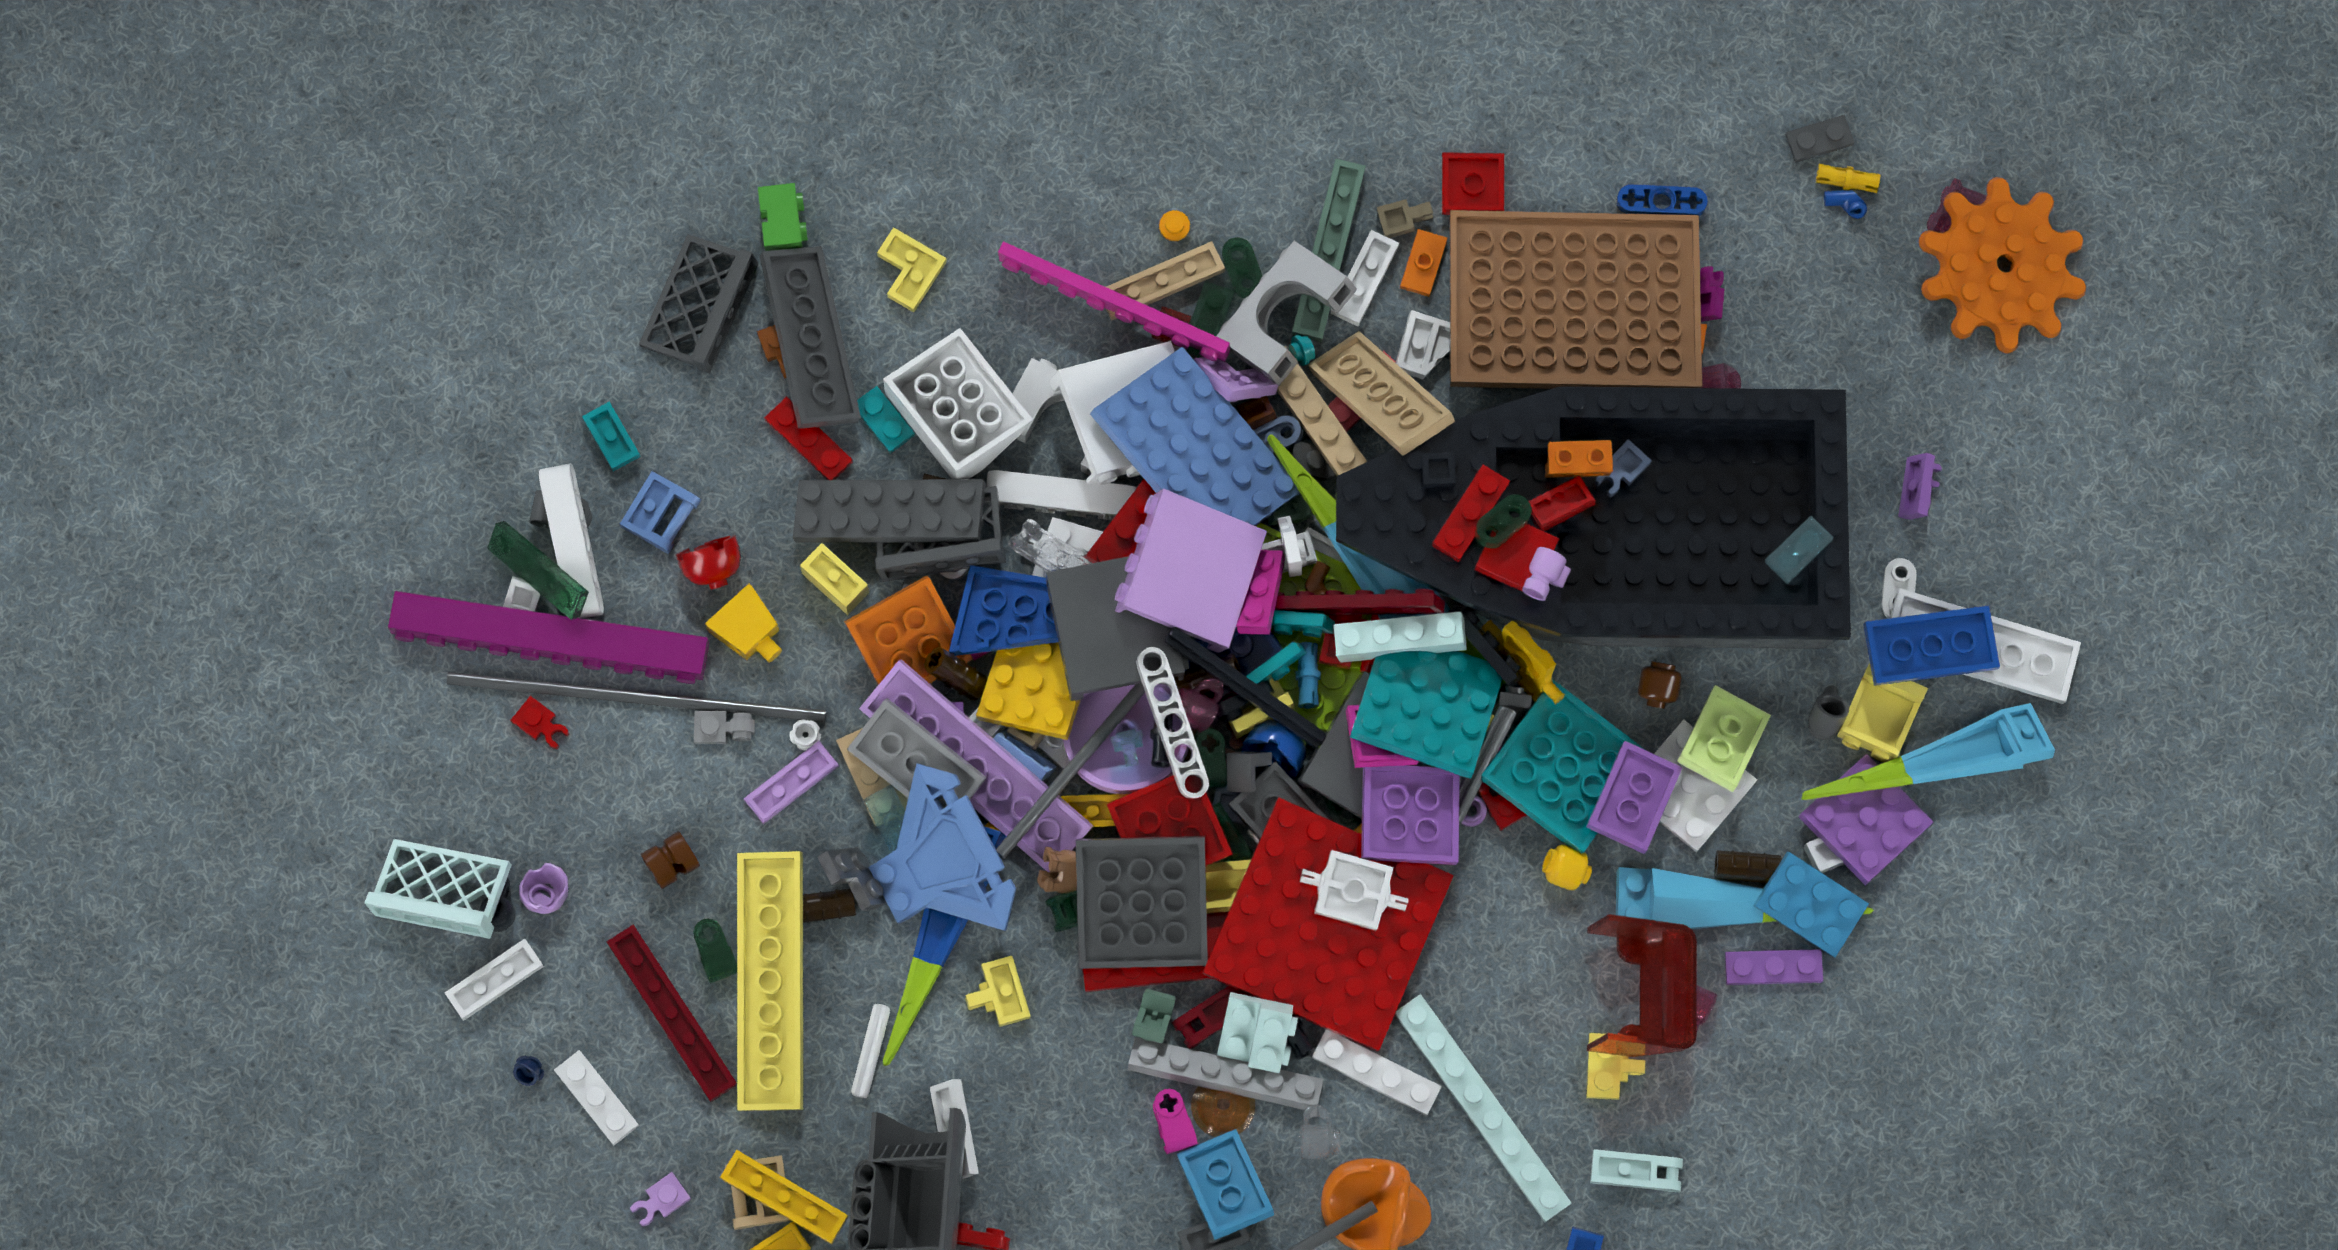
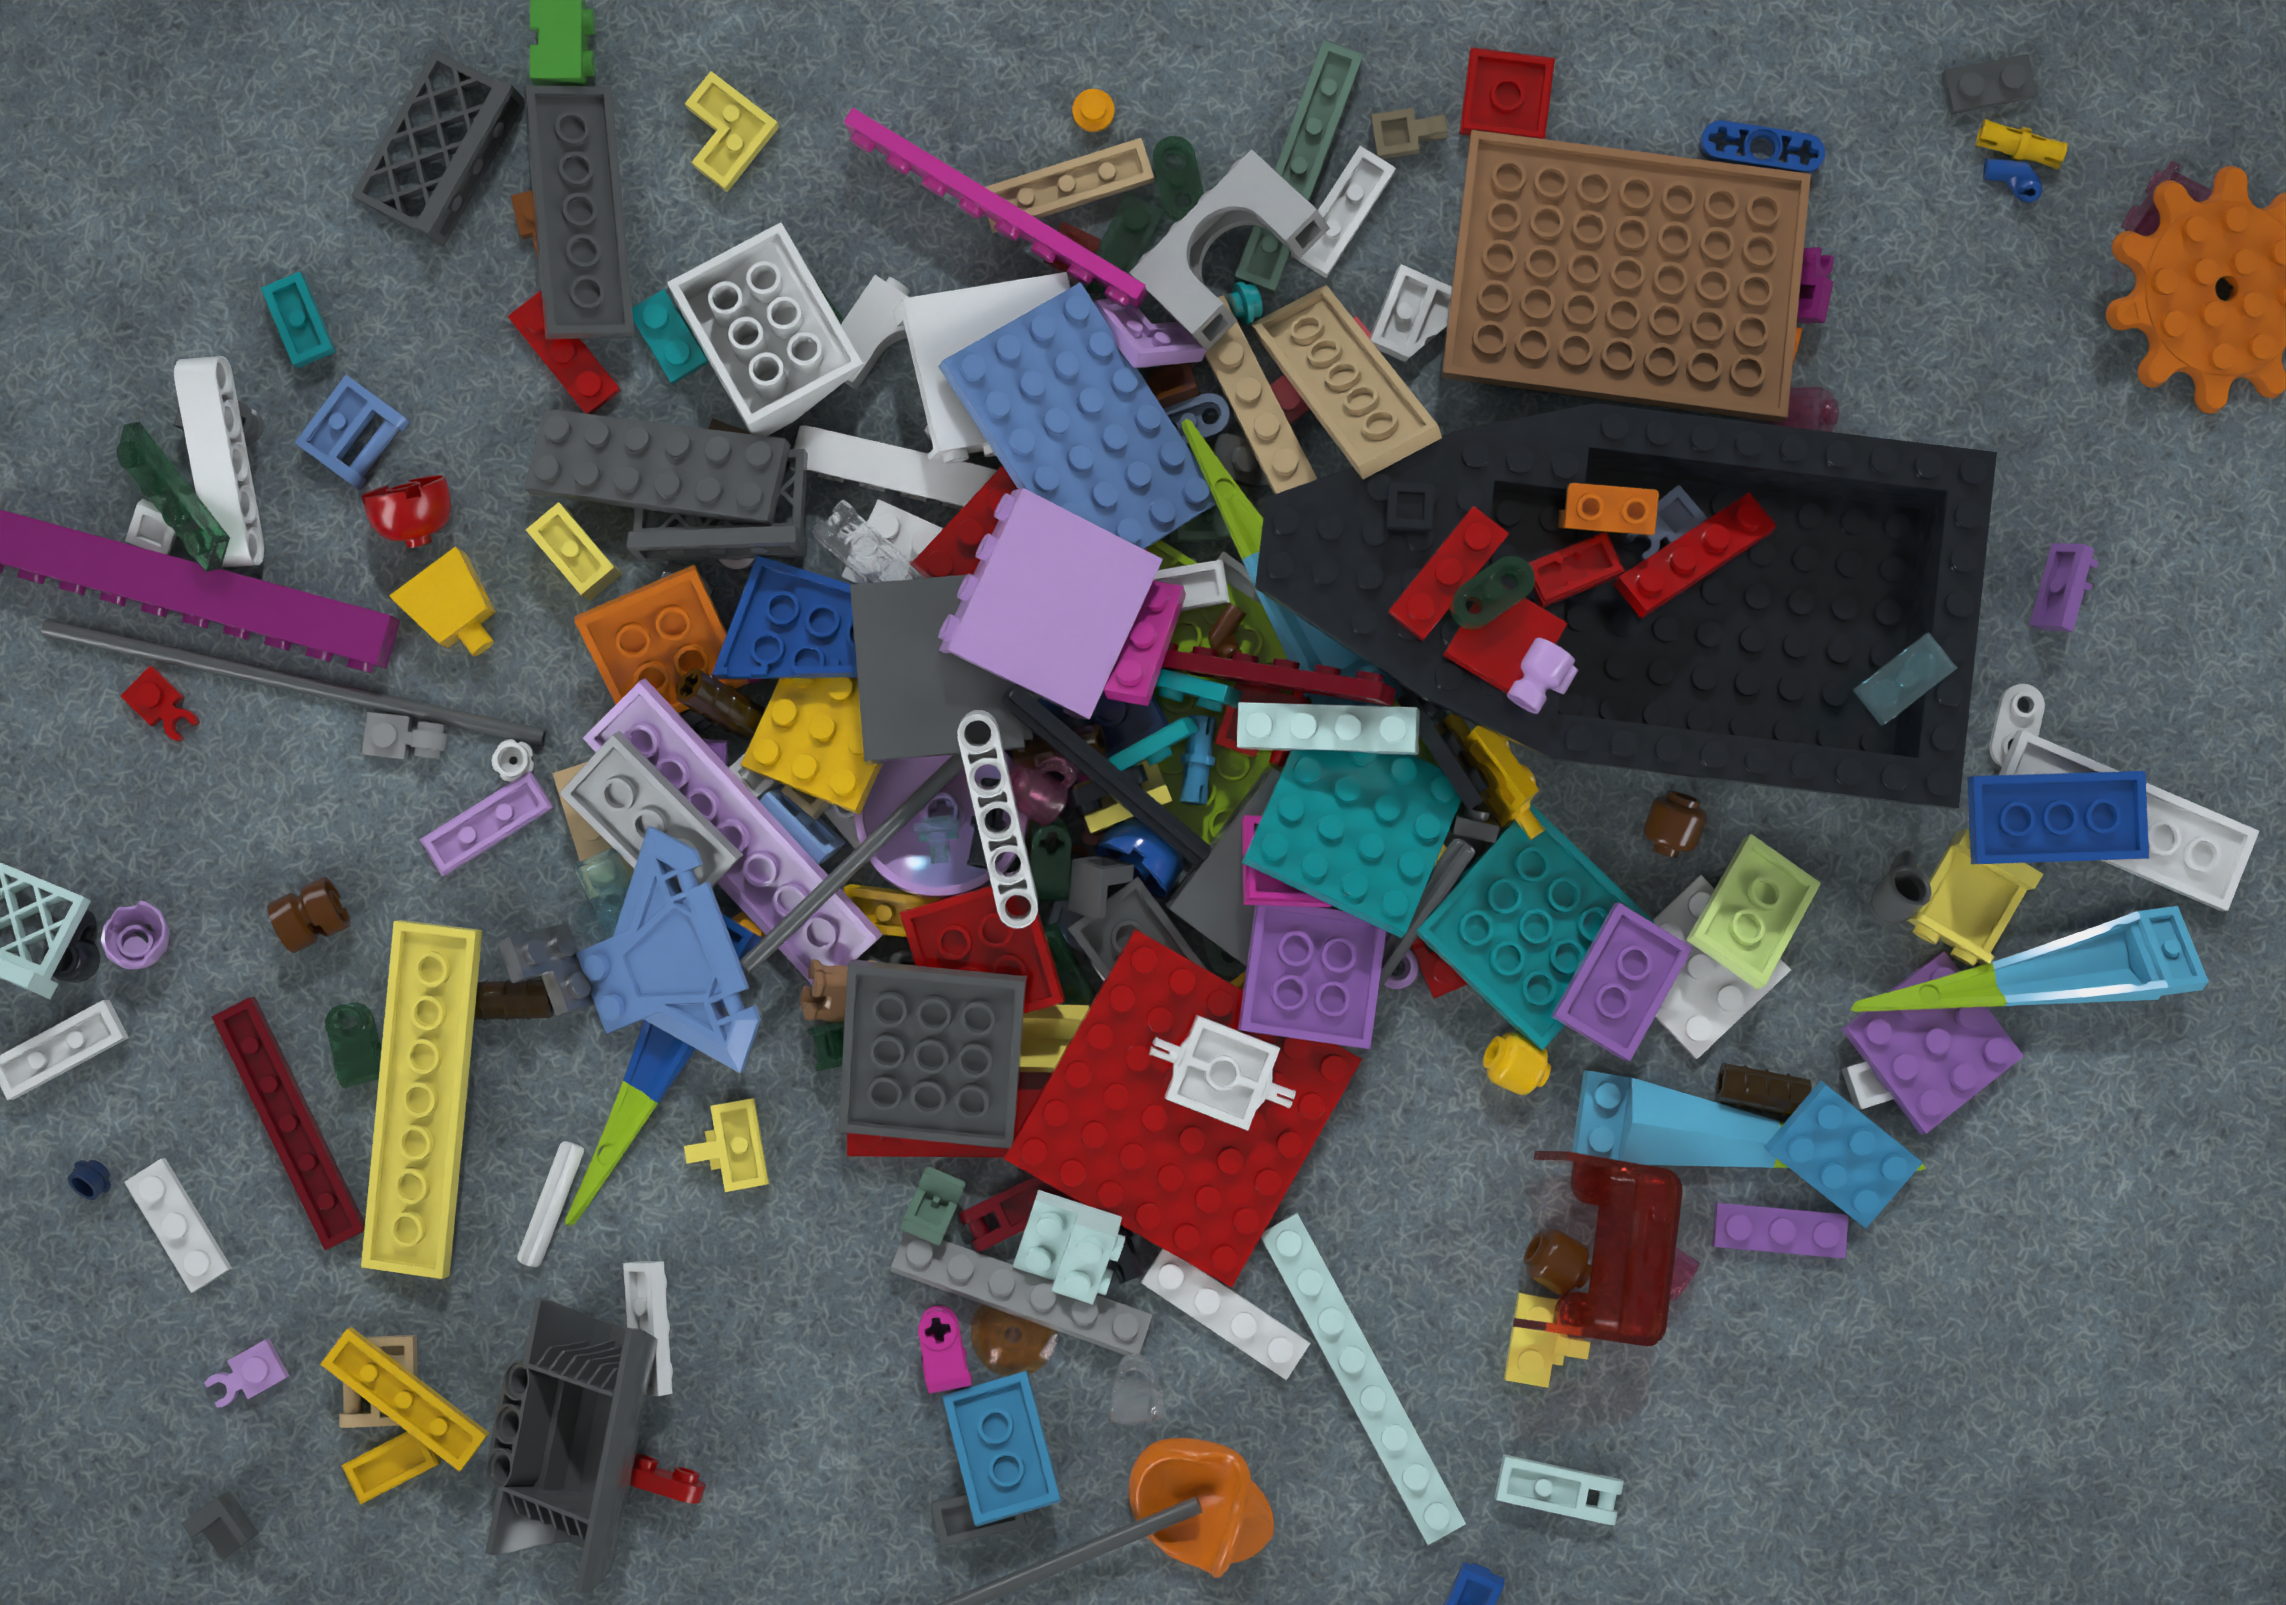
camera: 15 degrees right, 10 degrees up
(1293, 548) = (1196, 588): white wing -> none
(1423, 263) = (1426, 199): orange plate -> none
(1614, 1005) = (1557, 1261): none -> reddish brown head
(1645, 486) = (1694, 555): none -> red plate

